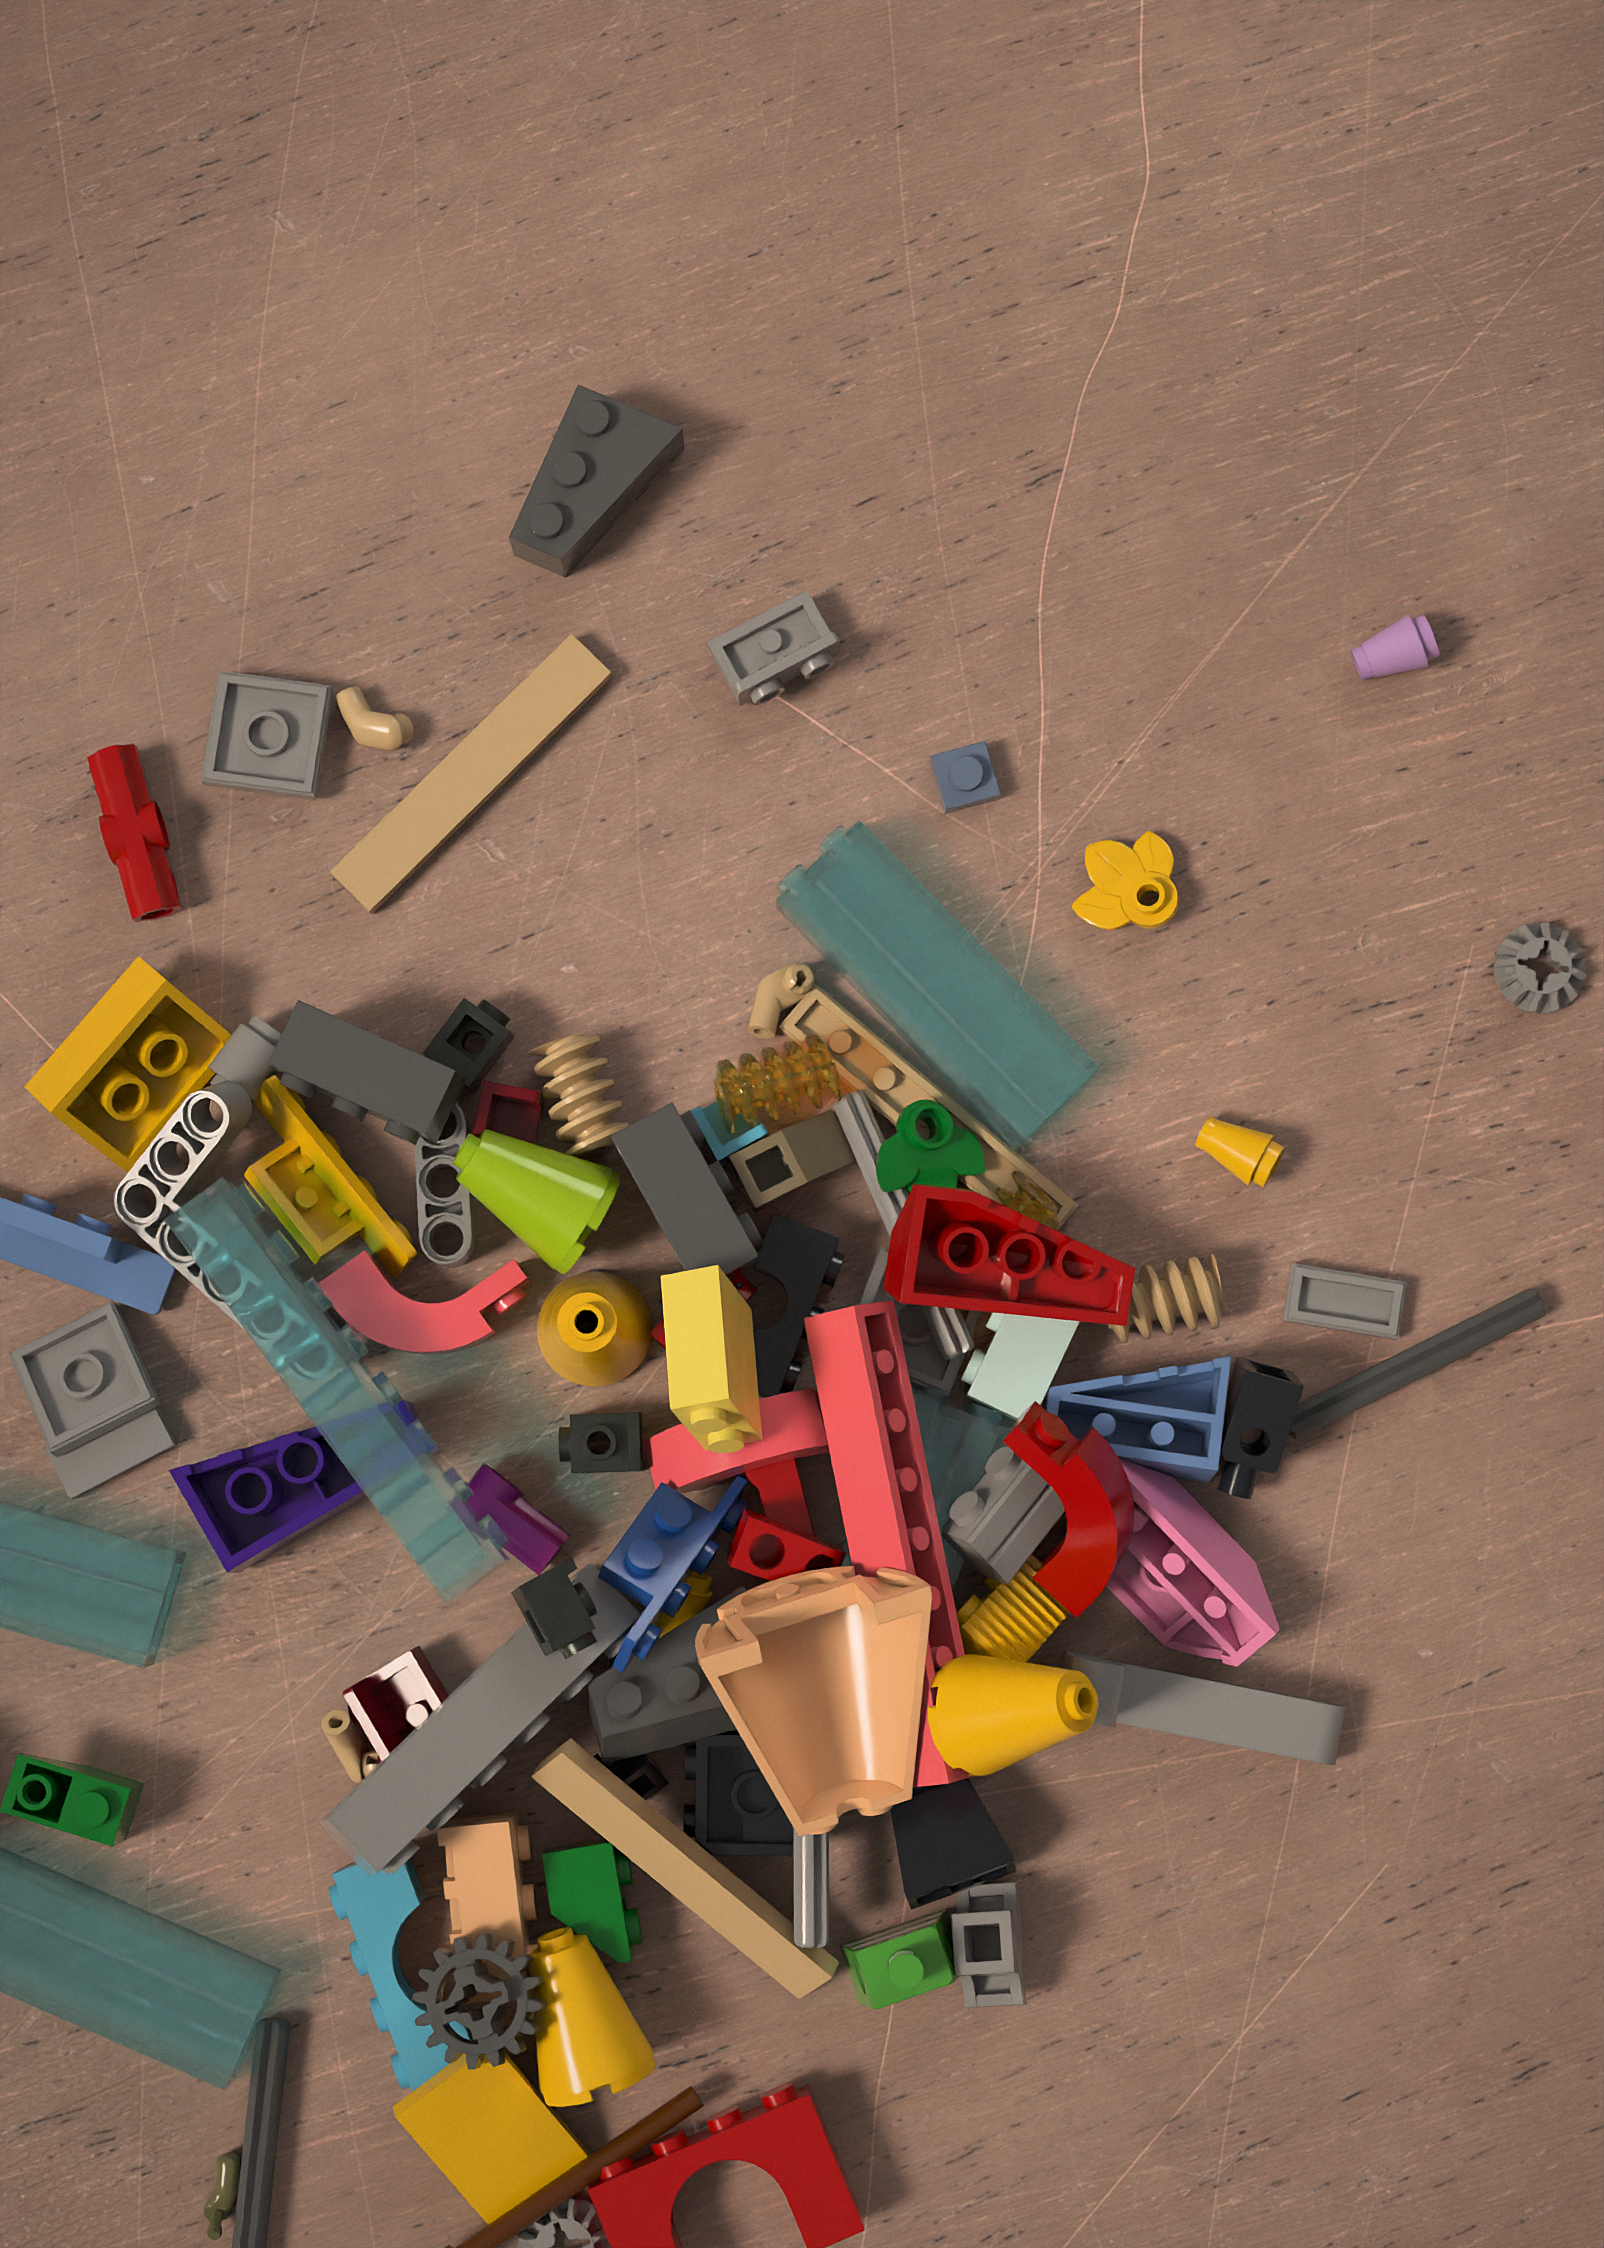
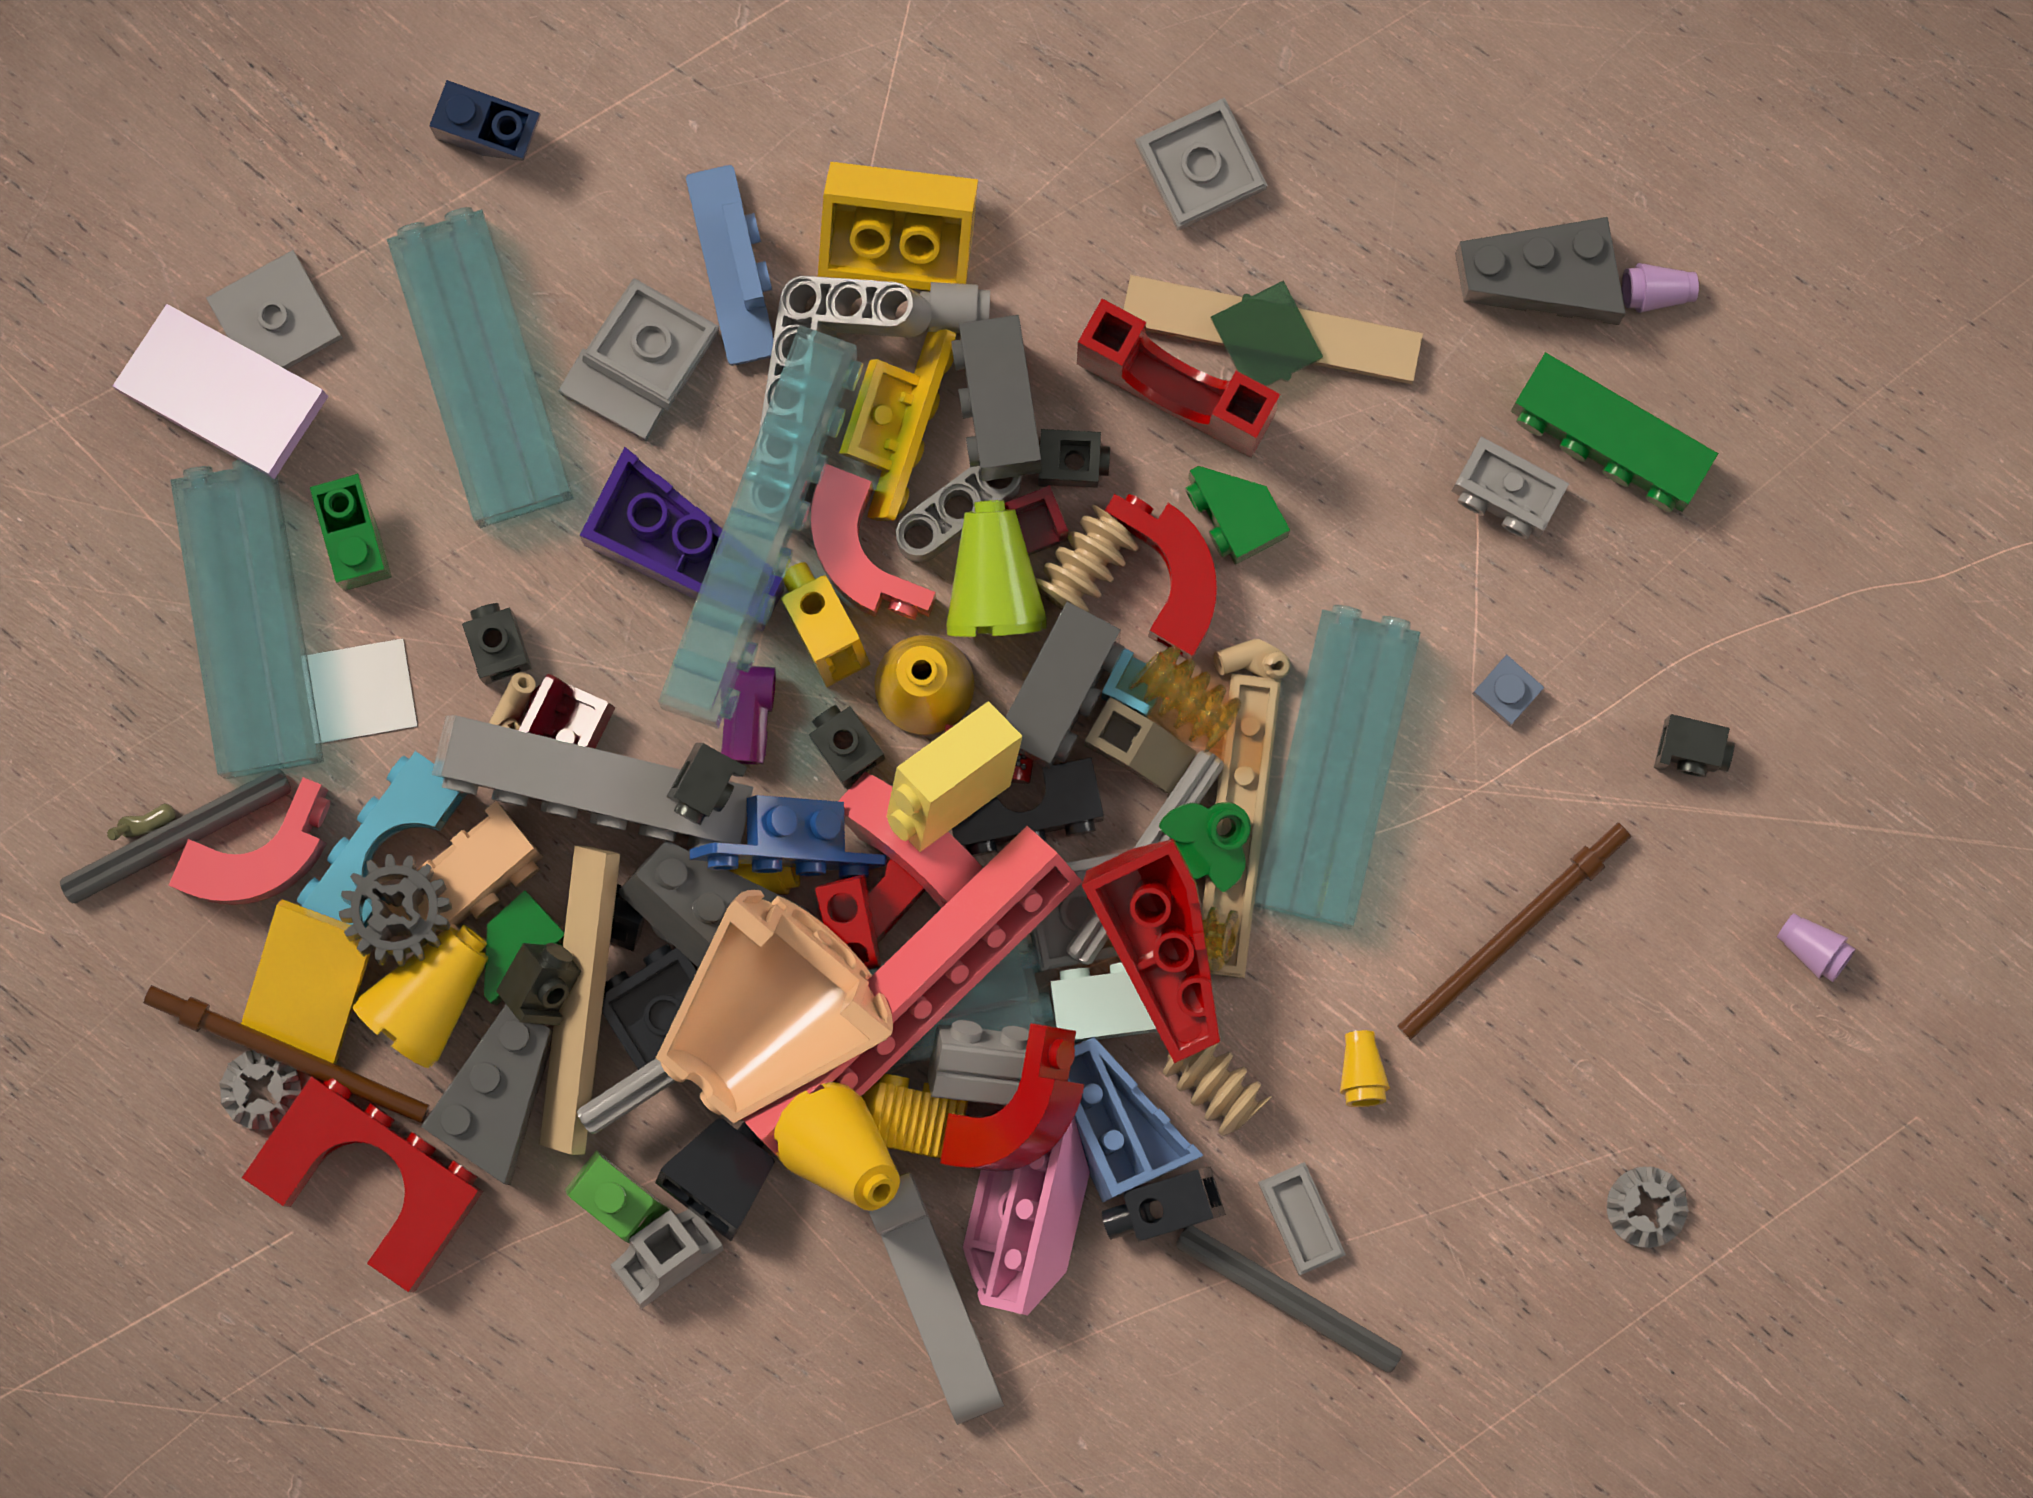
camera: 60 degrees right, 0 degrees up
(134, 832) = (1066, 116): red piece -> none
(236, 1885) = (362, 690): none -> white sticker
(299, 1718) = (506, 658): none -> pearl dark grey brick
(355, 2090) = (263, 872): none -> coral arch
(370, 727) = (1257, 236): tan arm -> none
(409, 925) = (1123, 354): none -> red arch
(477, 782) = (1267, 335): none -> clear green piece
(487, 1389) = (823, 625): none -> yellow torso
(627, 916) = (1240, 510): none -> green slope
(644, 1901) = (539, 983): none -> pearl dark grey brick
(648, 999) = (1190, 568): none -> red arch
(675, 385) = (1657, 287): none -> lavender cone
(722, 2015) = (493, 1095): none -> dark grey wedge
(786, 518) = (1613, 433): none -> green brick
(1122, 878) = (1507, 854): yellow plate -> none
(1133, 638) = (1694, 746): none -> pearl dark grey brick
(1179, 812) = (1585, 865): none -> reddish brown bar

